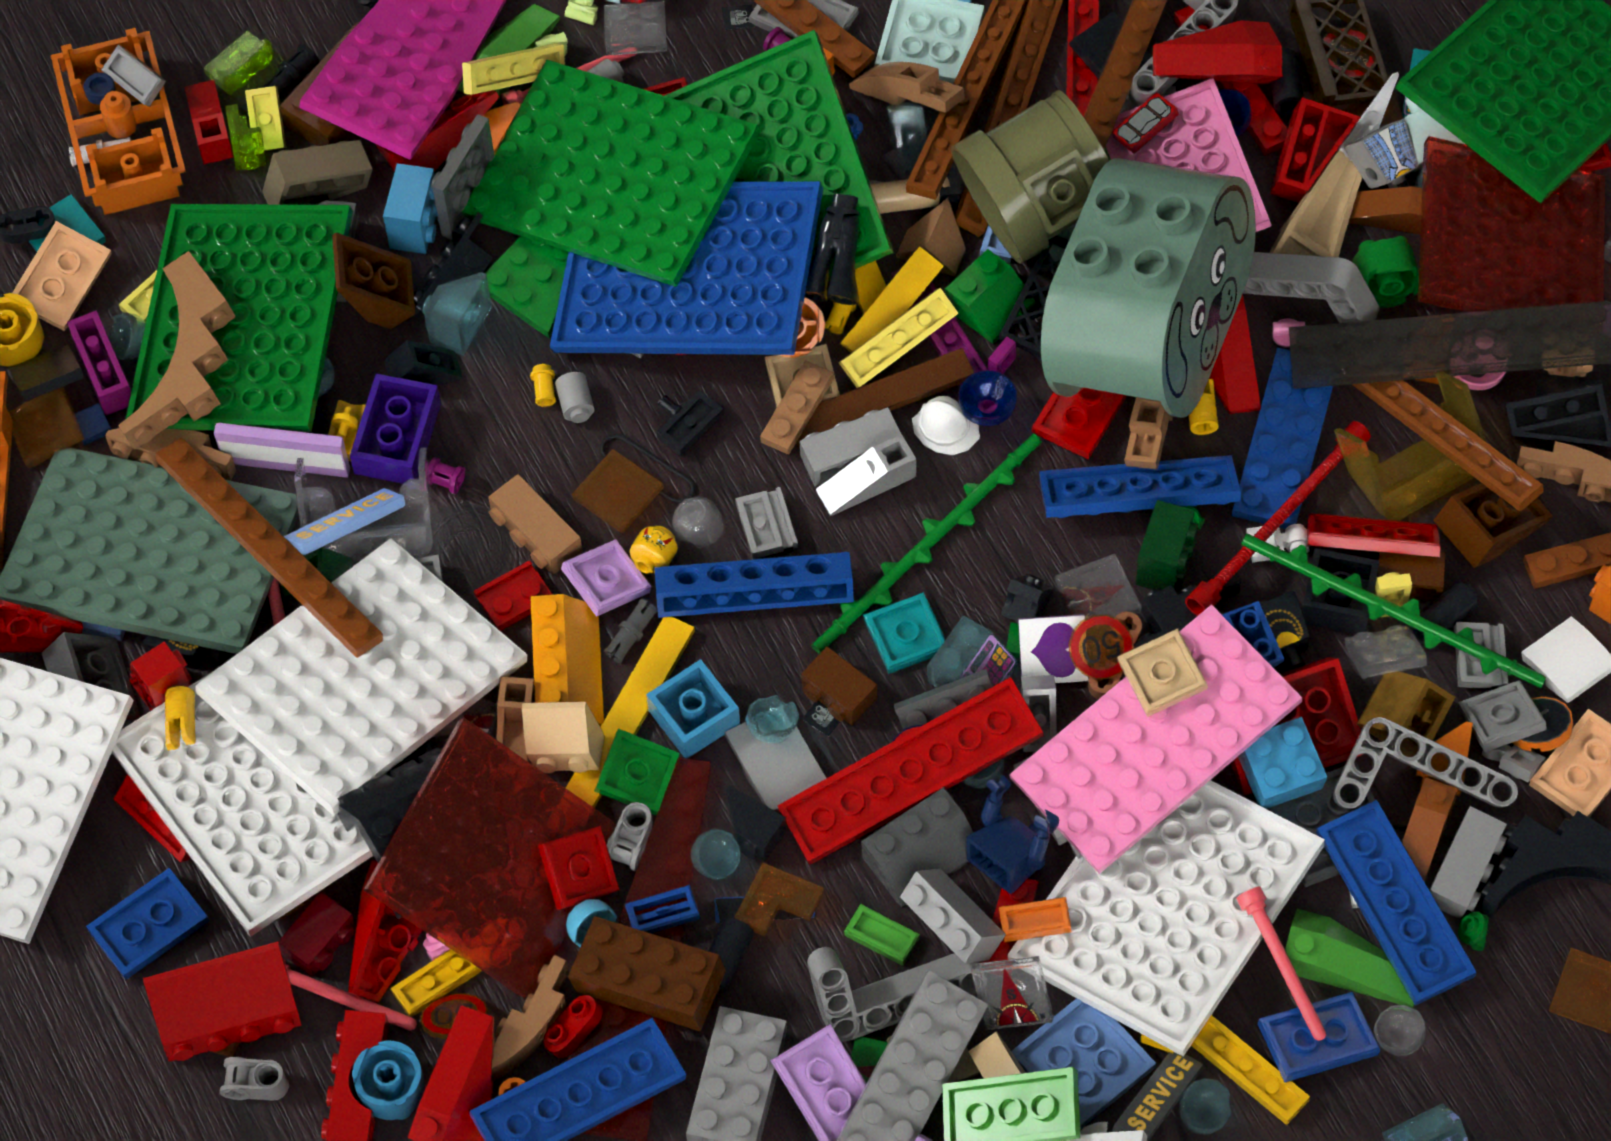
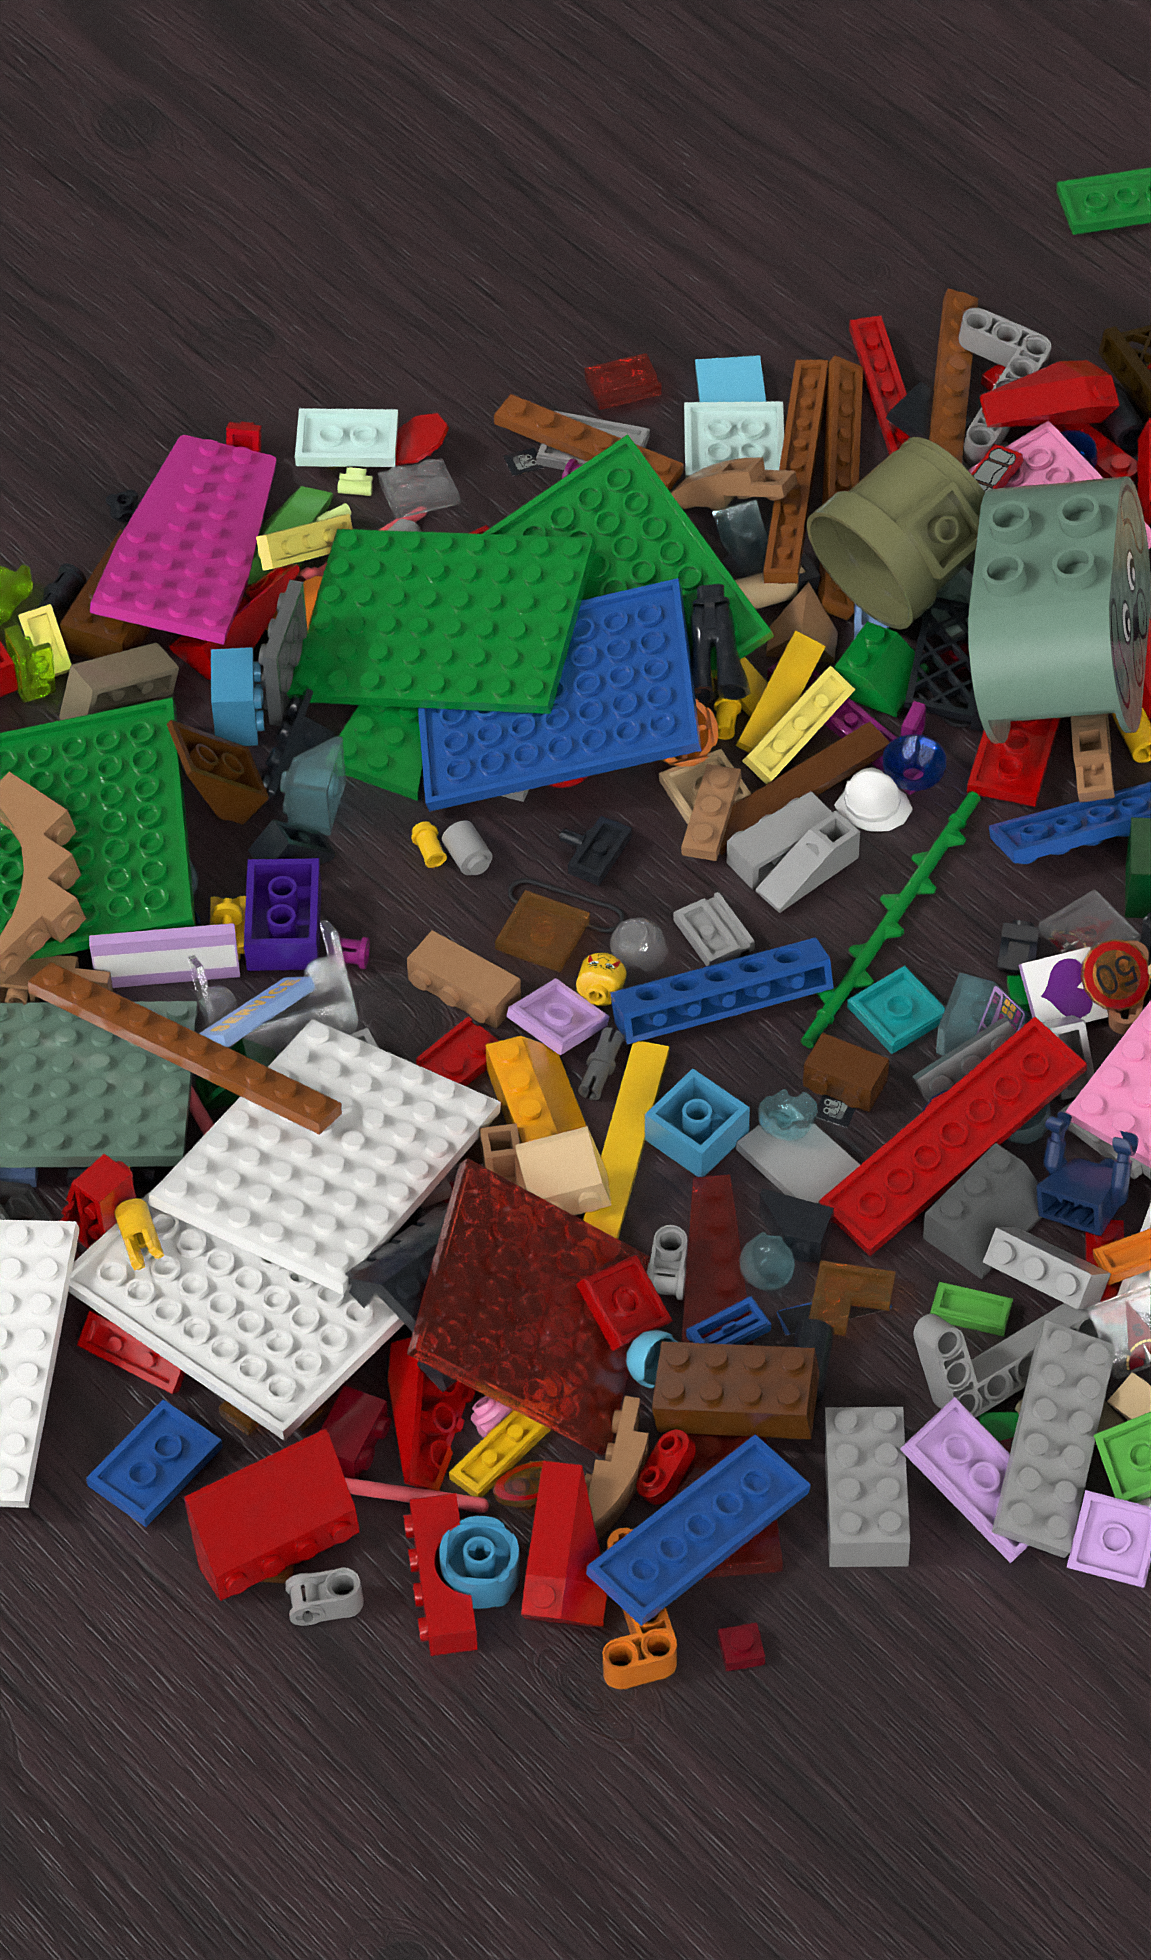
camera: 15 degrees left, 10 degrees down
(636, 771) = (653, 1196): green plate -> none

